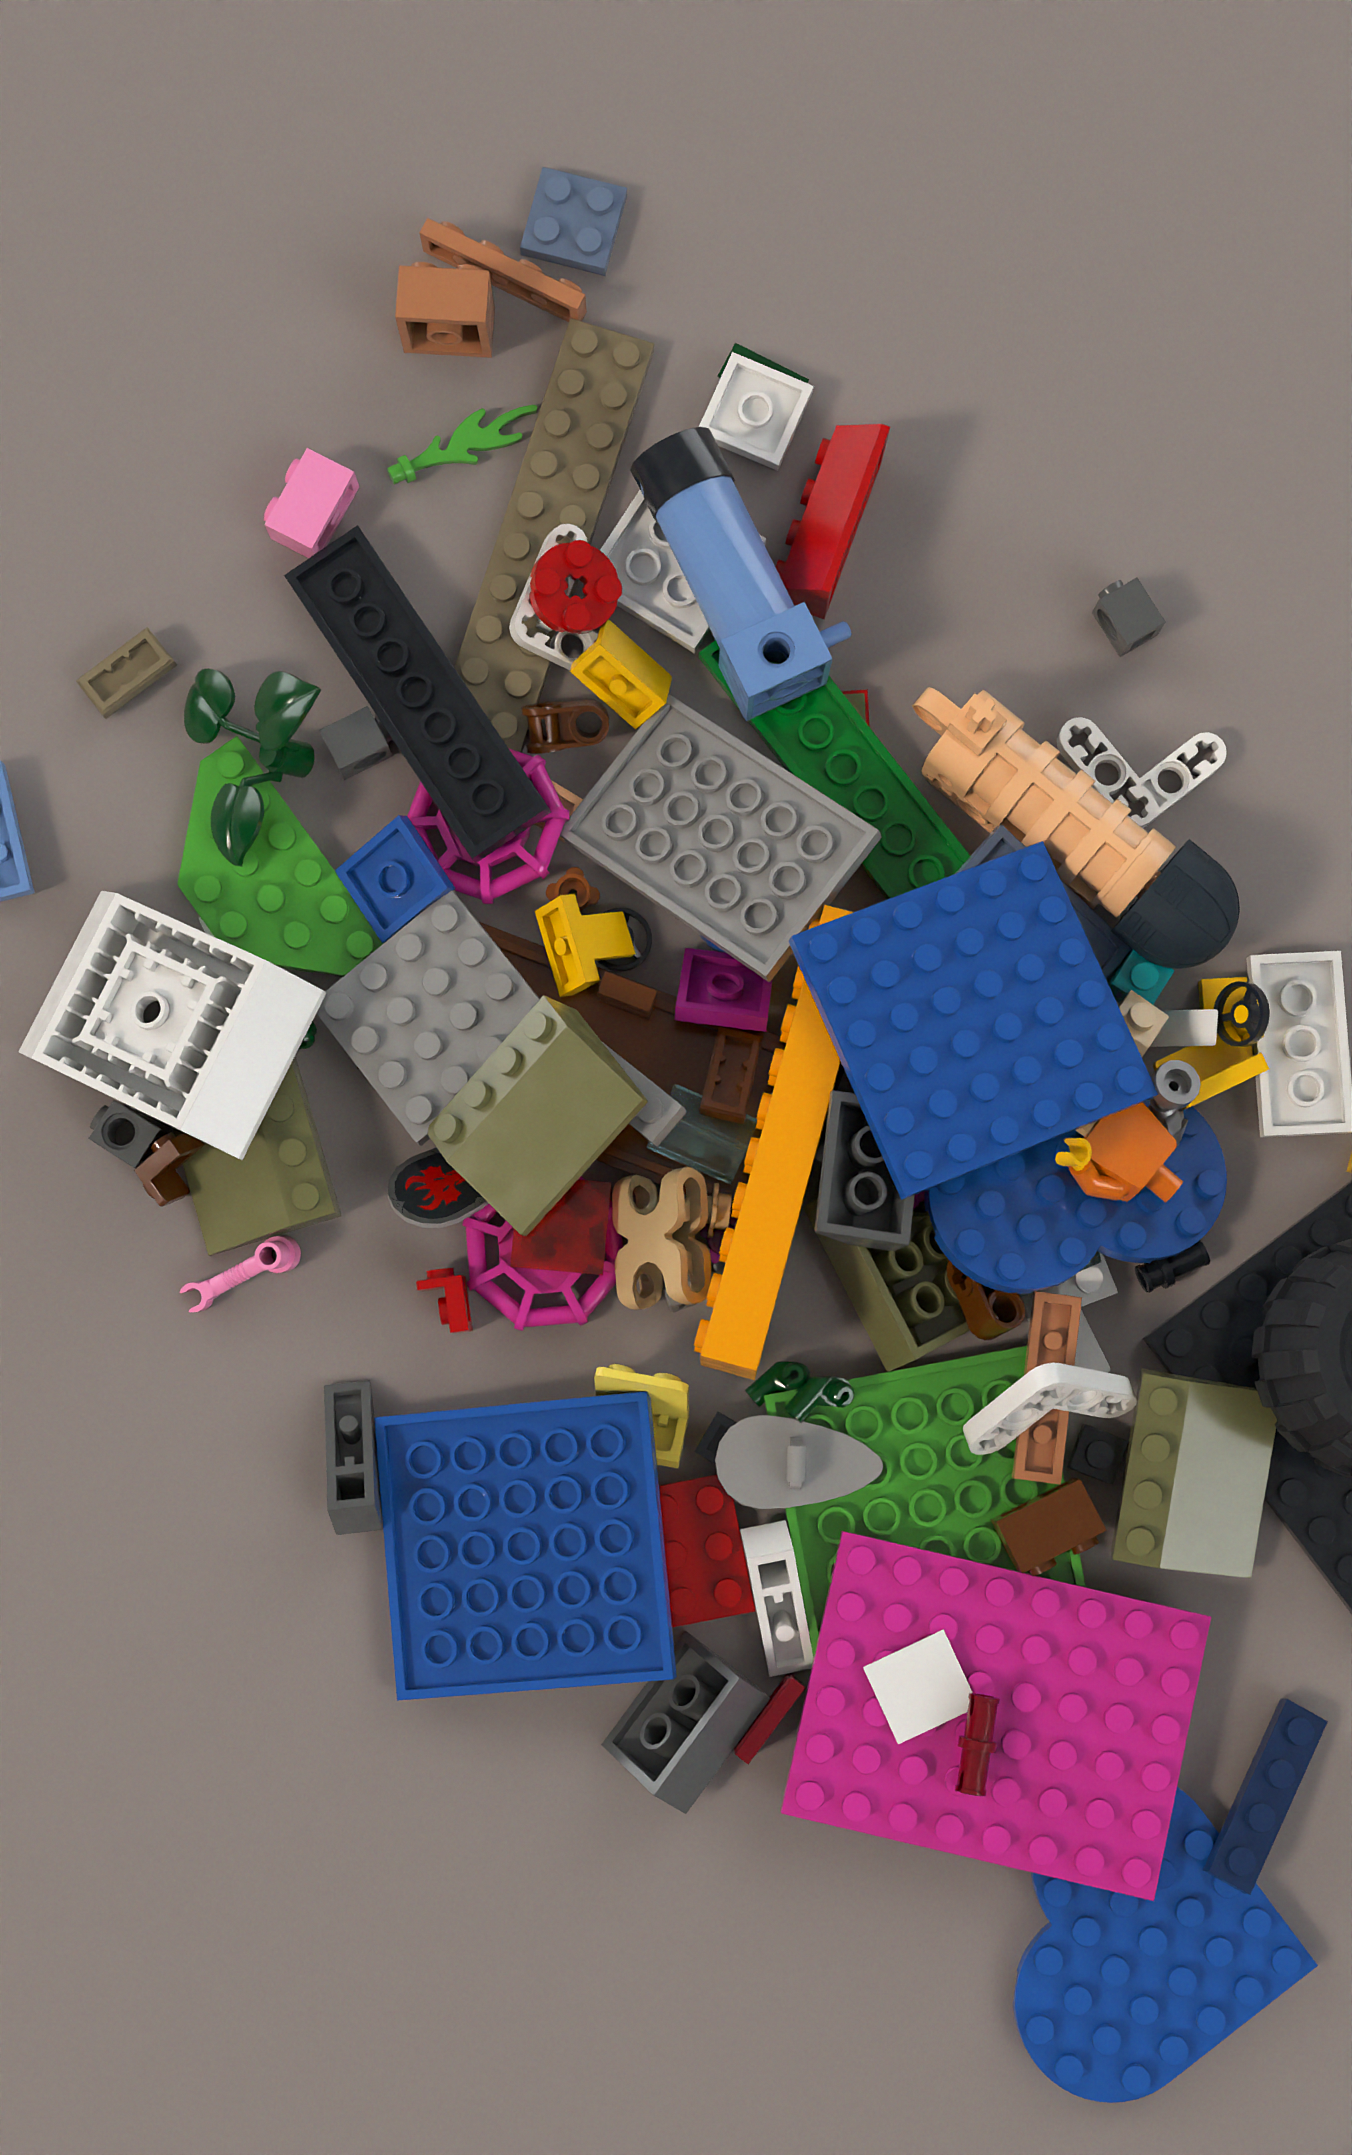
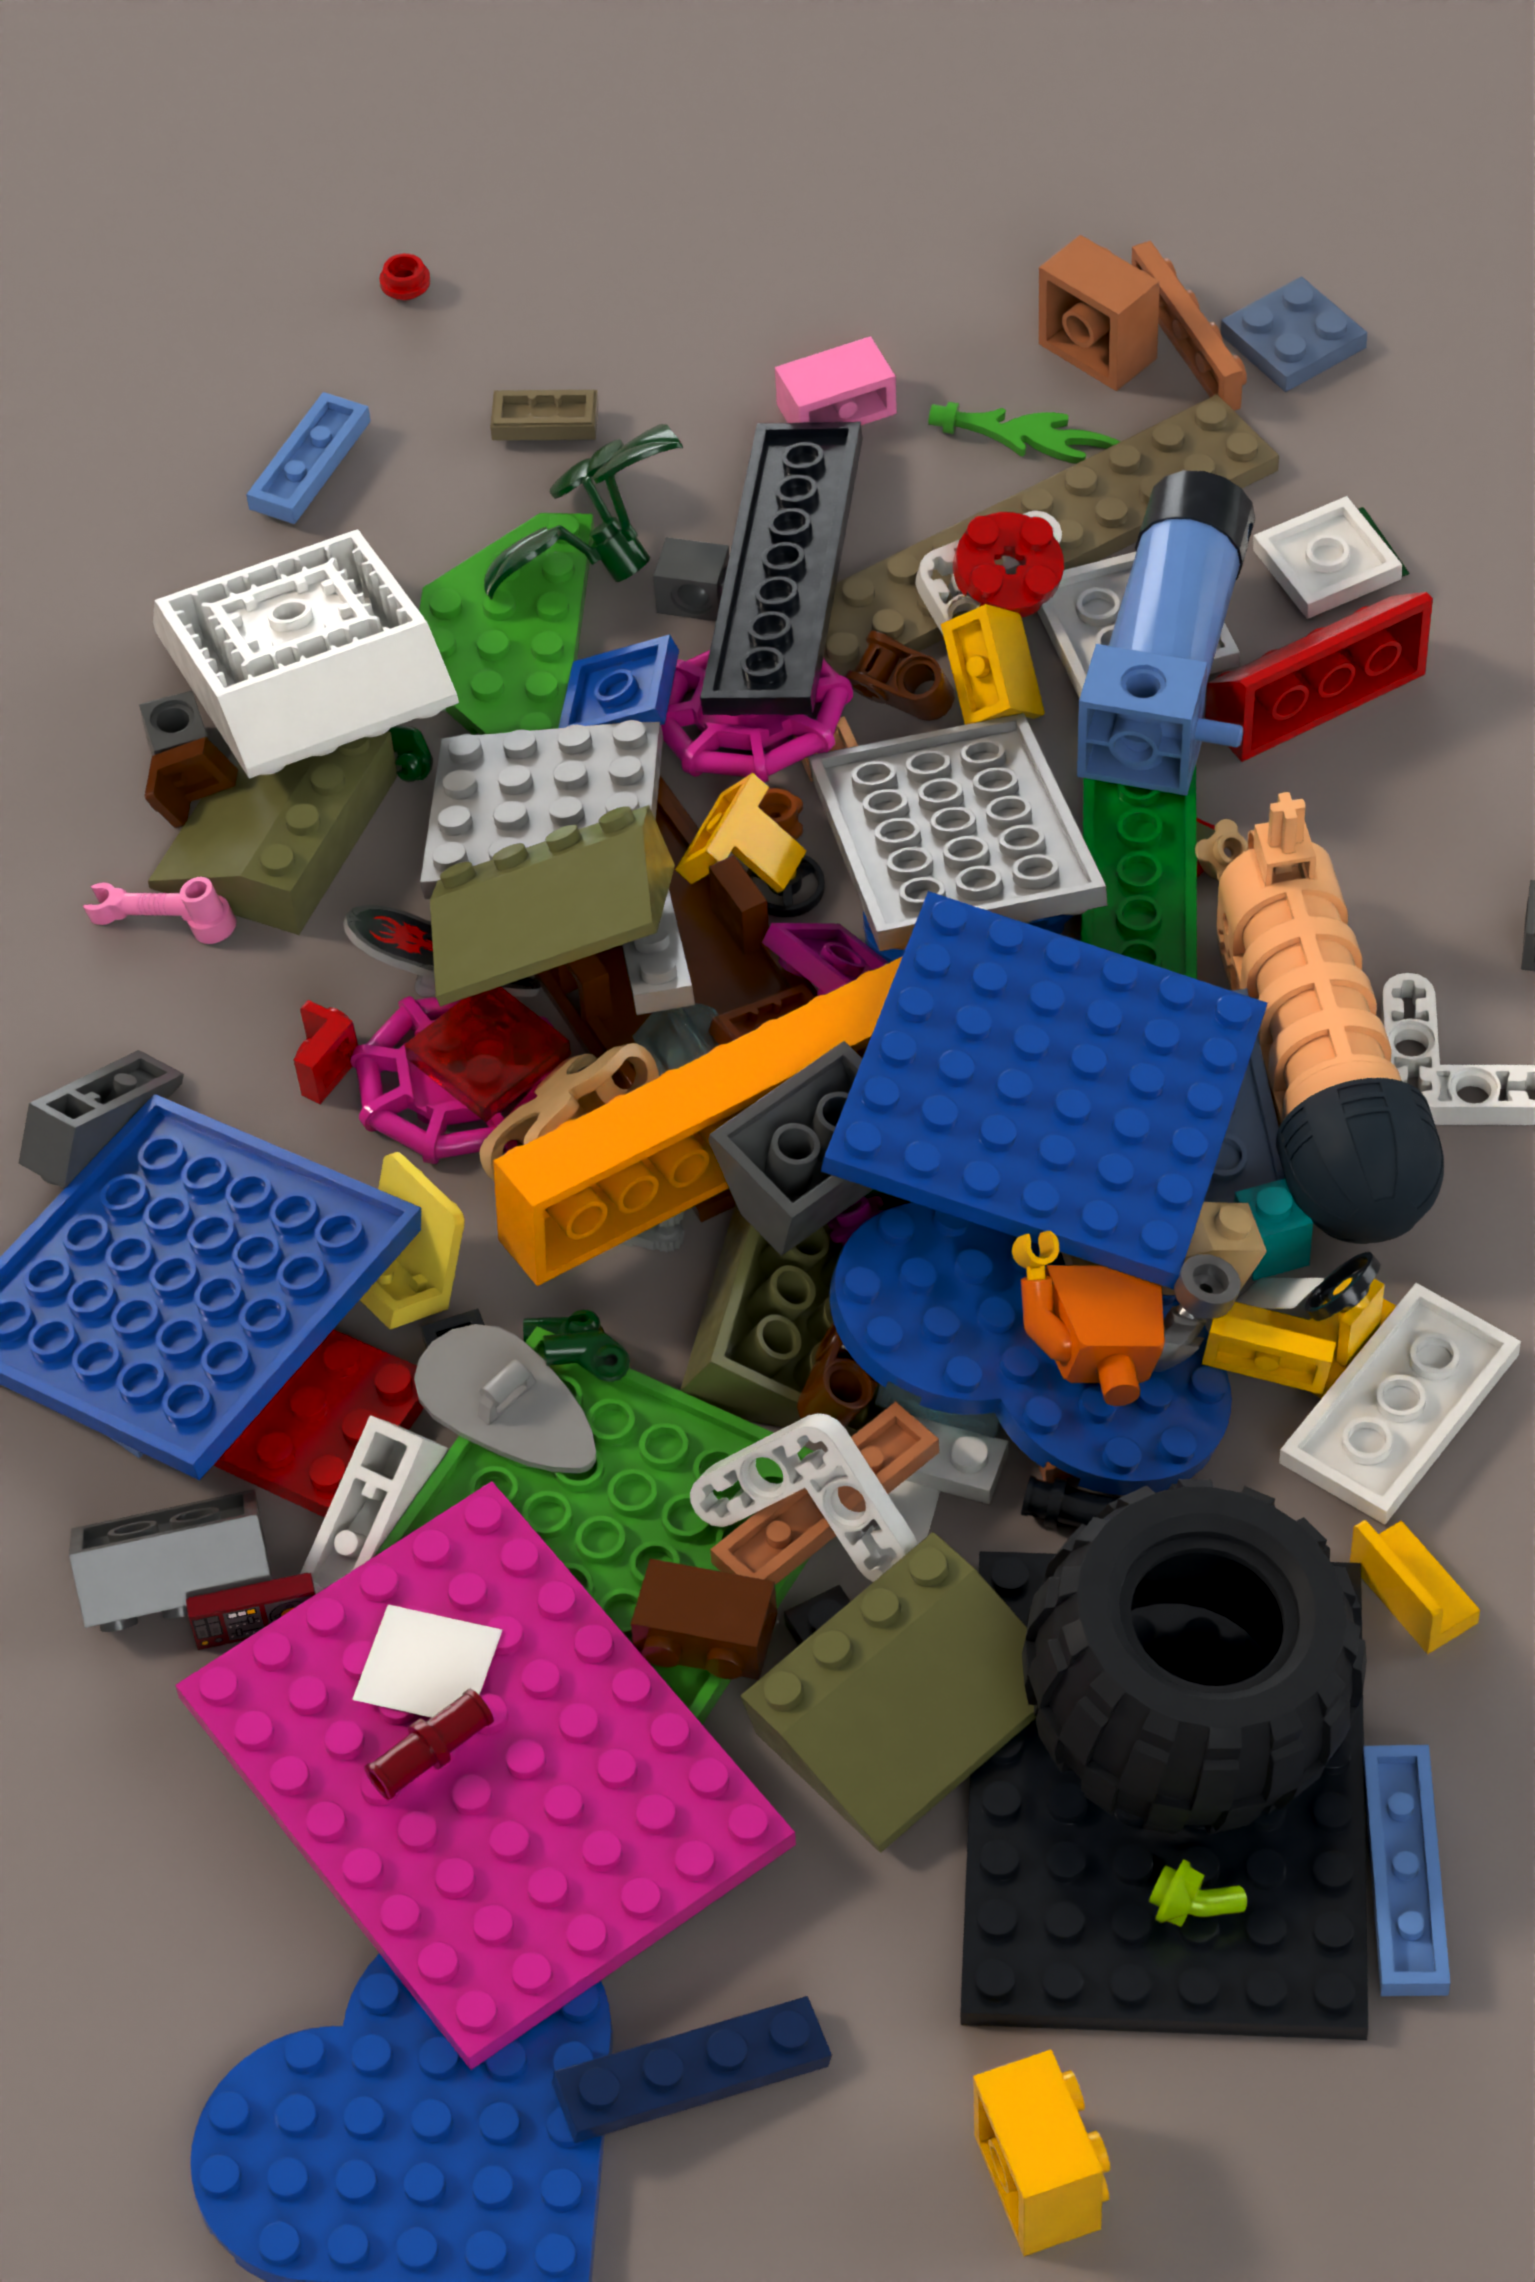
camera: 45 degrees right, 30 degrees down
(874, 711) = (1211, 852): none -> tan plate

